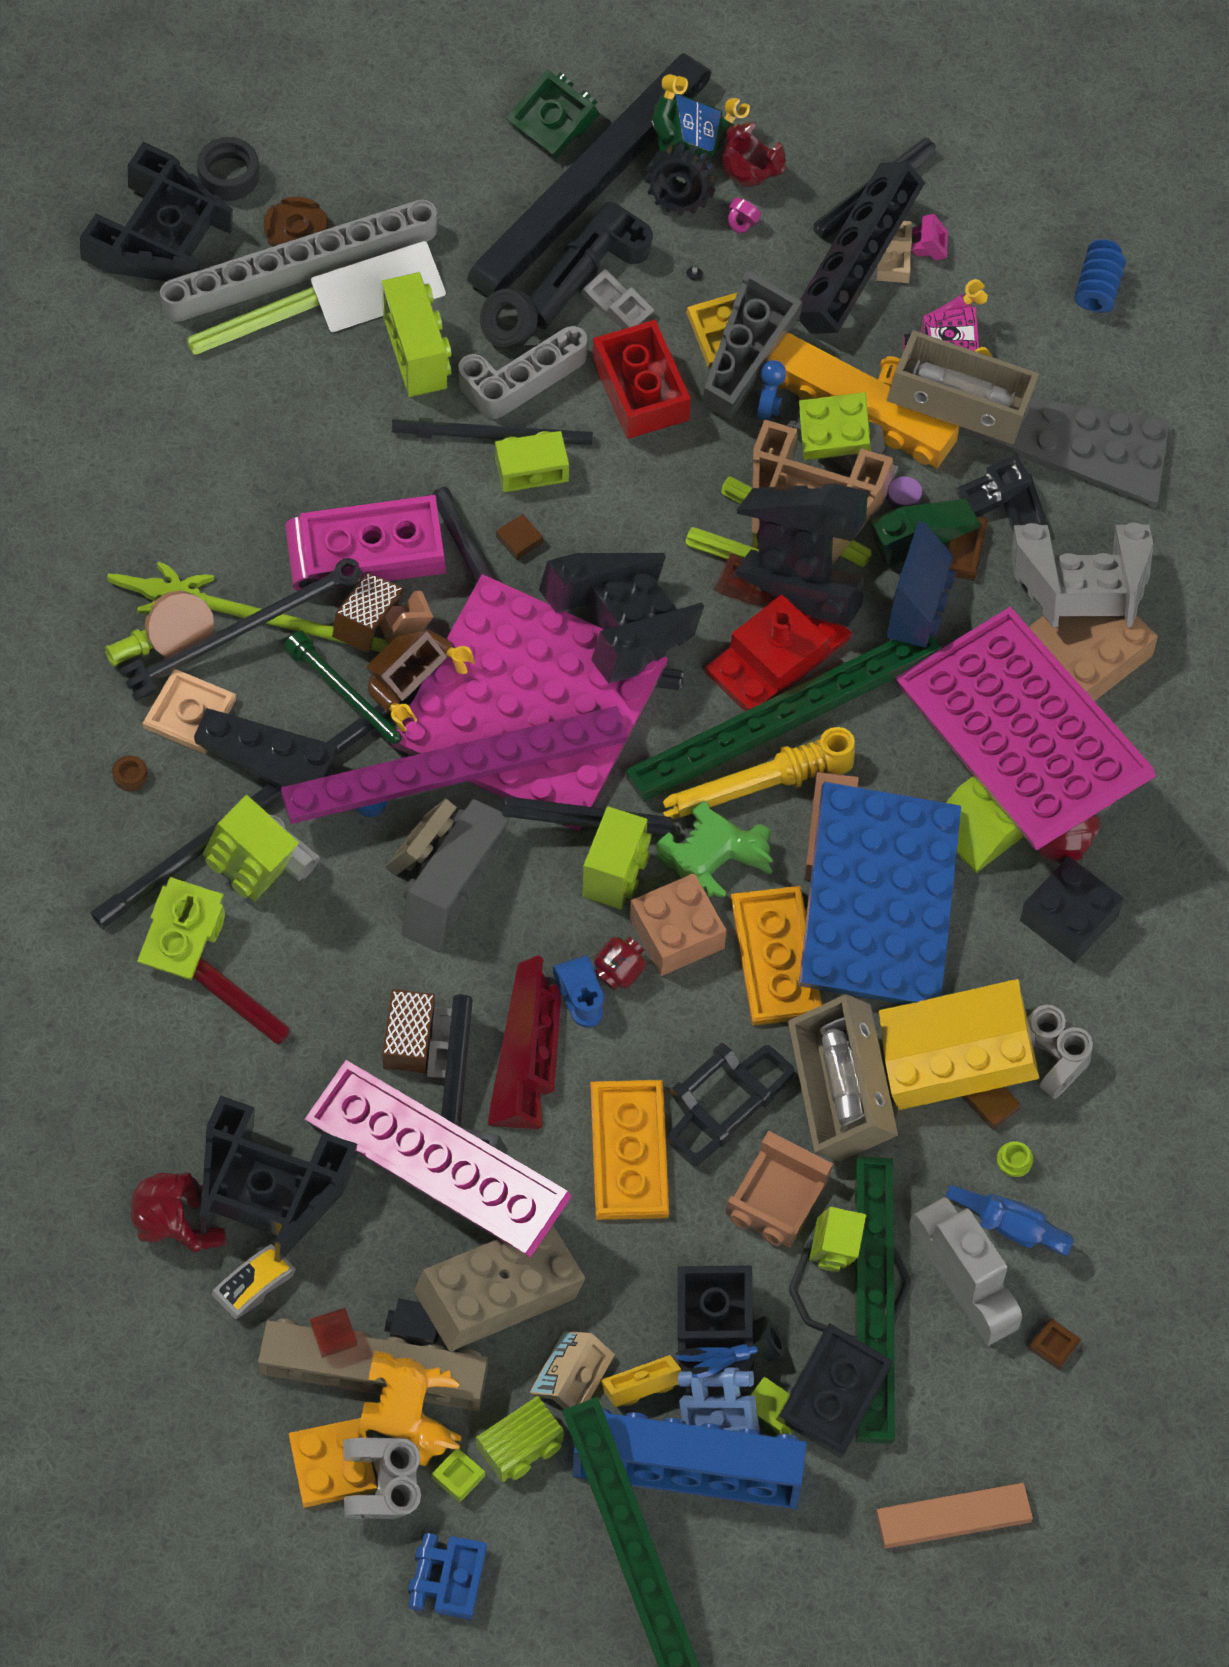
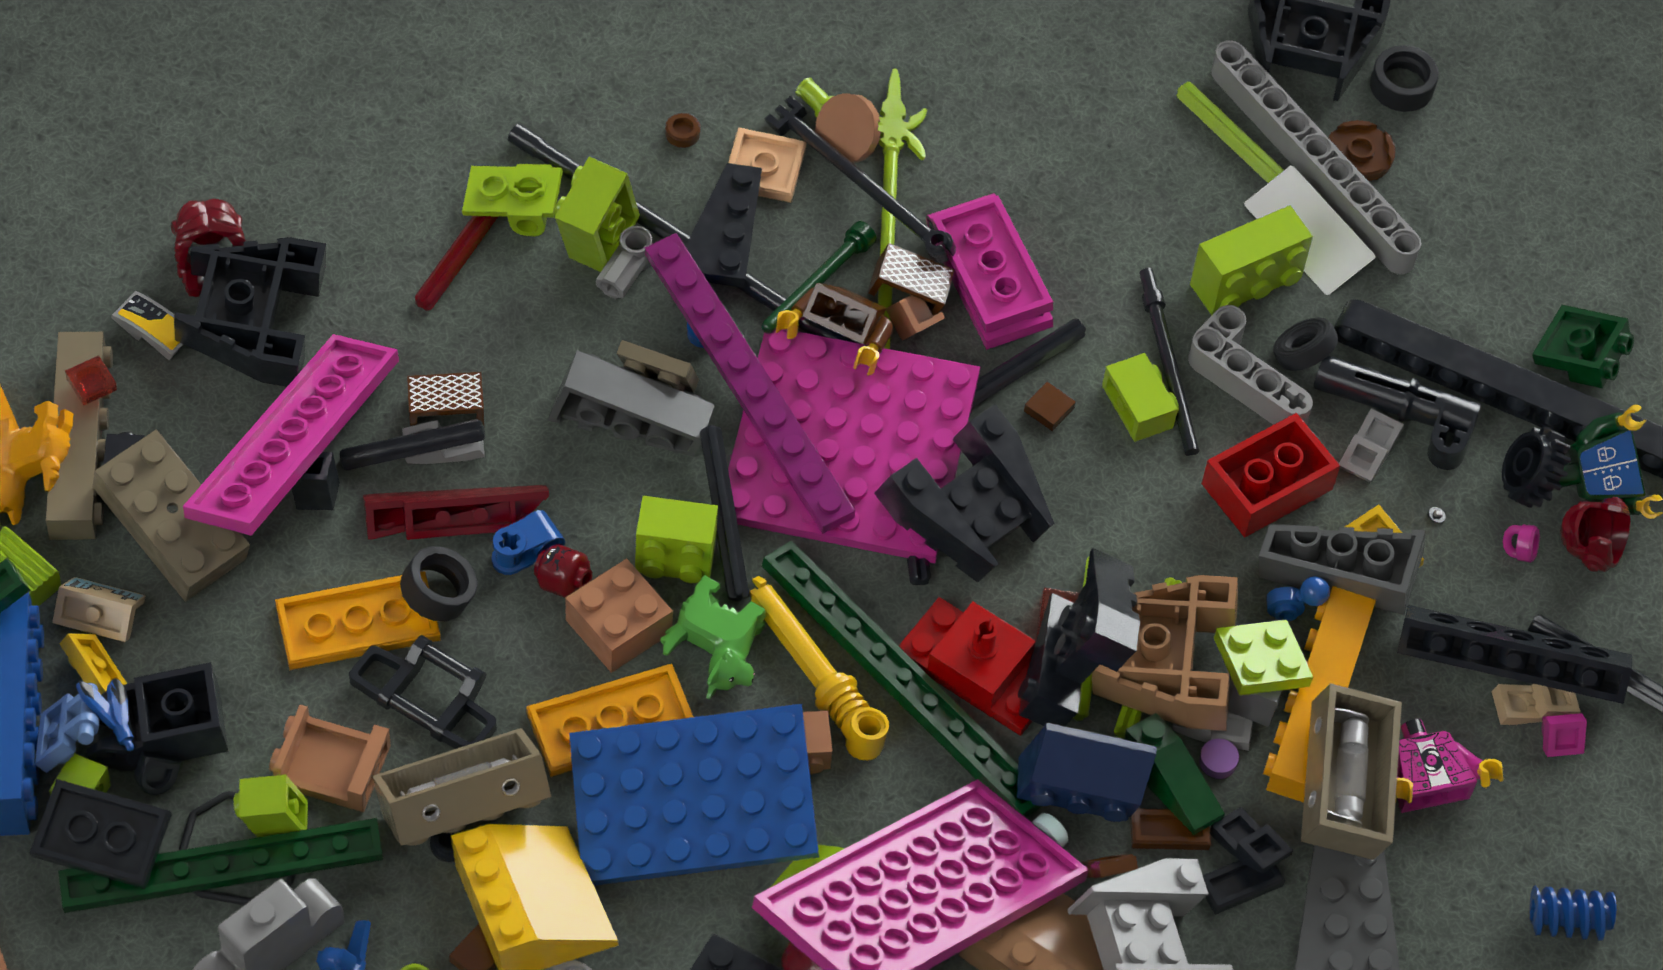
camera: 75 degrees right, 5 degrees down
(615, 1049) = (423, 599): none -> black tyre
(956, 630) = (1052, 828): none -> light aqua tile
(1009, 590) = (1110, 865): none -> reddish brown tile

